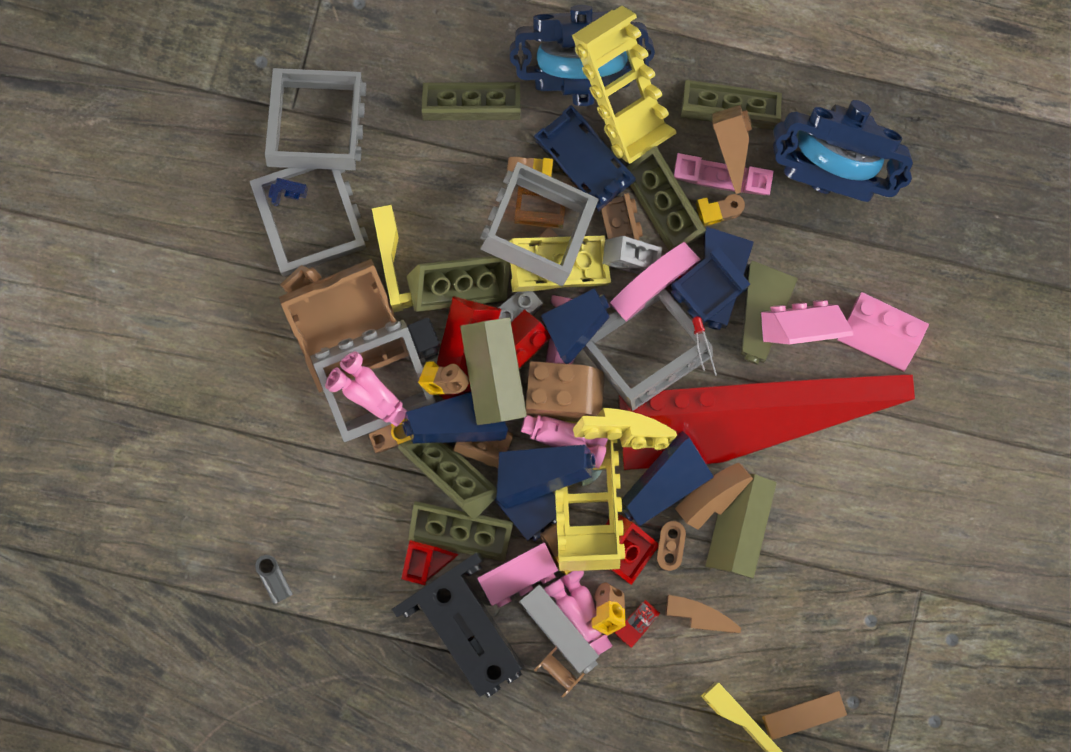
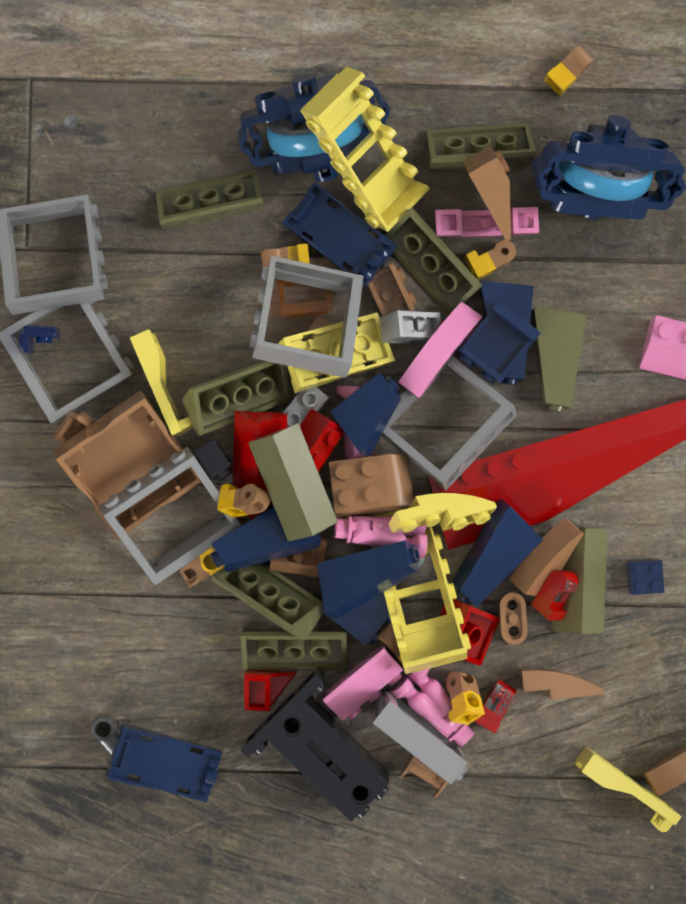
camera: 10 degrees left, 5 degrees up
(316, 610) = (163, 763): none -> dark blue piece
(365, 389) = (164, 529): bright pink piece -> none
(699, 328) = (497, 391): piece -> none
(715, 530) = (555, 594): none -> red leg
(803, 534) = (645, 577): none -> dark blue piece
(804, 323) = (605, 361): bright pink slope -> none
(828, 52) = (568, 70): none -> leg

